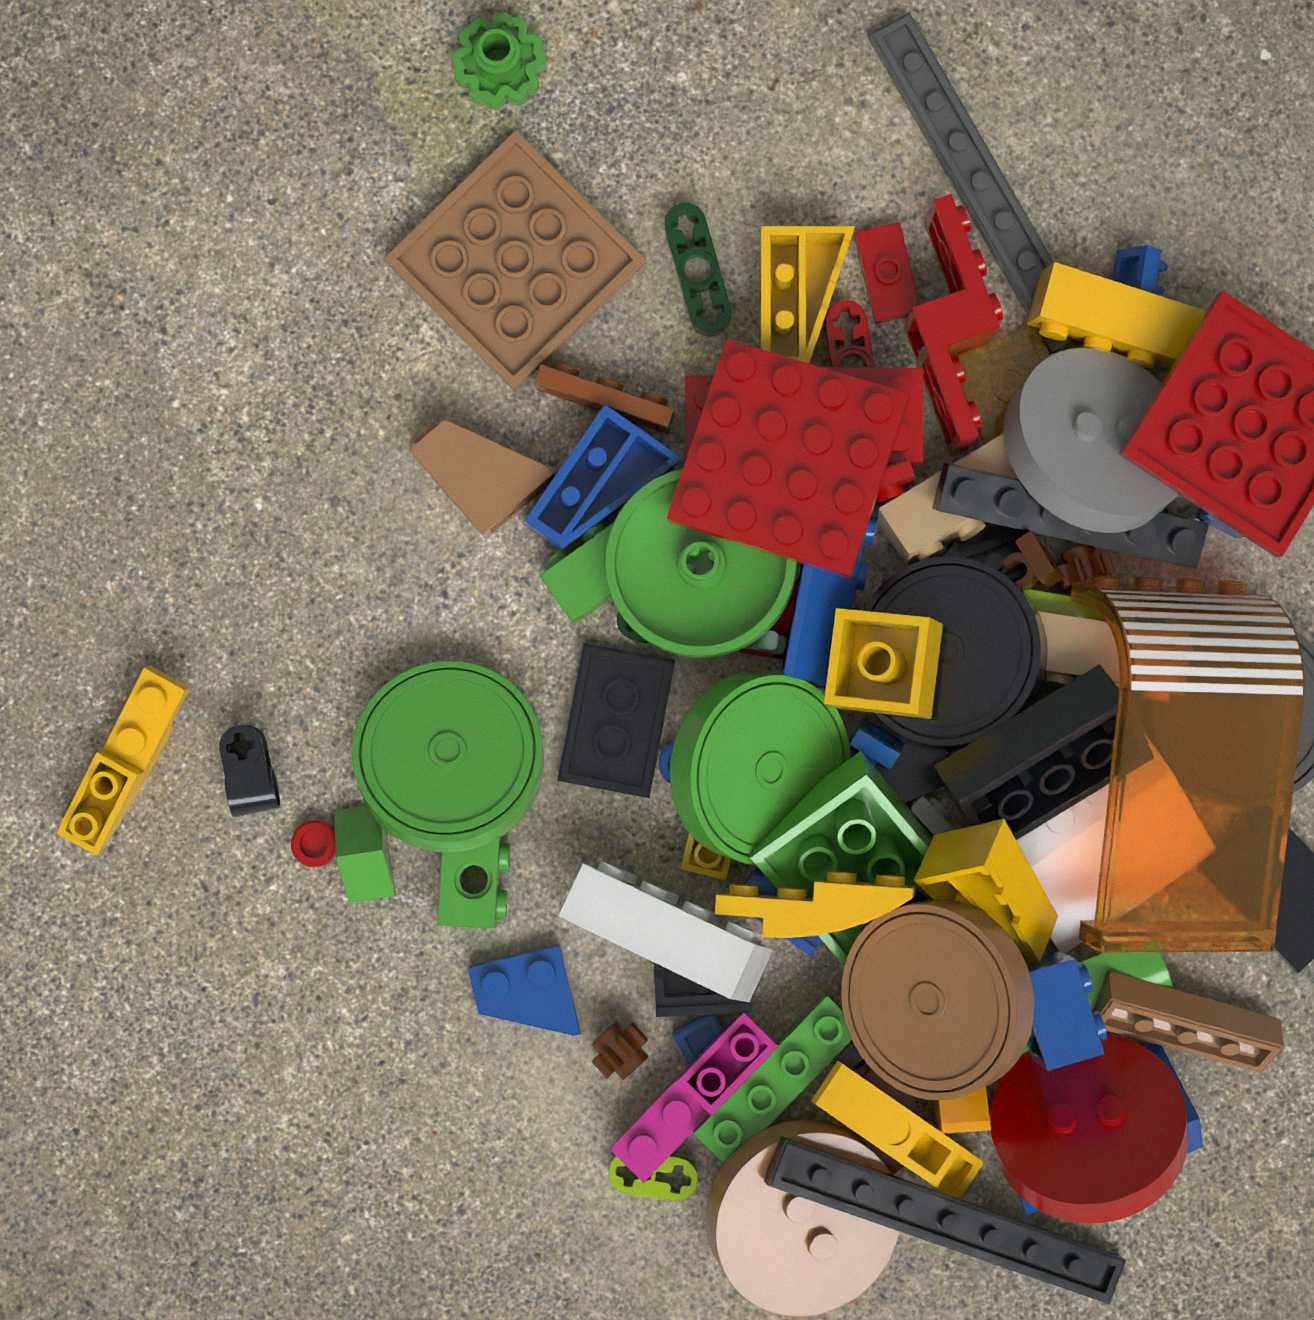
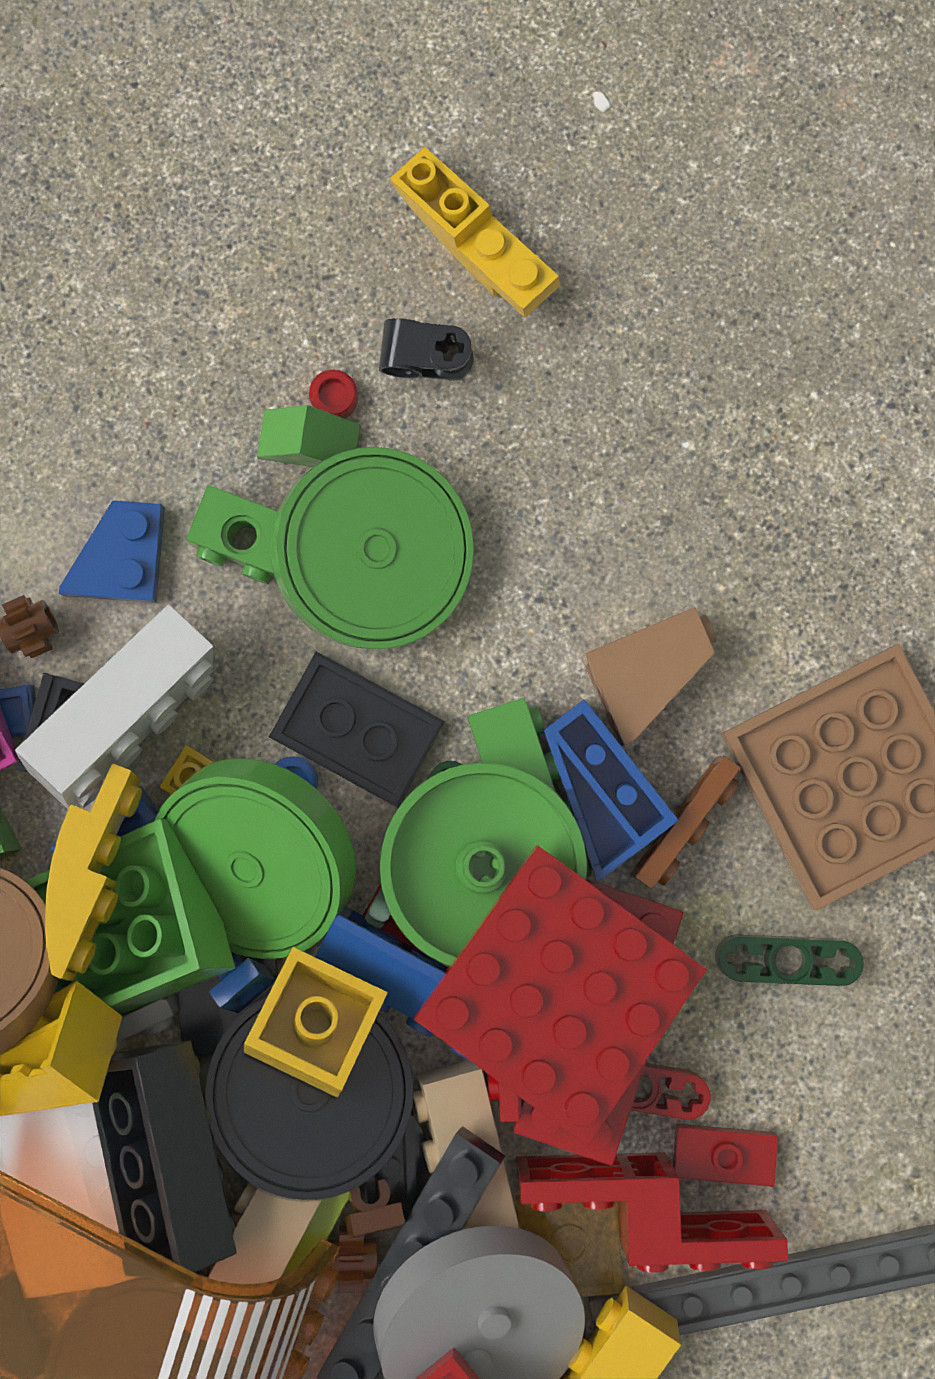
camera: 100 degrees right, 0 degrees up
(797, 284) = (741, 1059): yellow wedge -> none

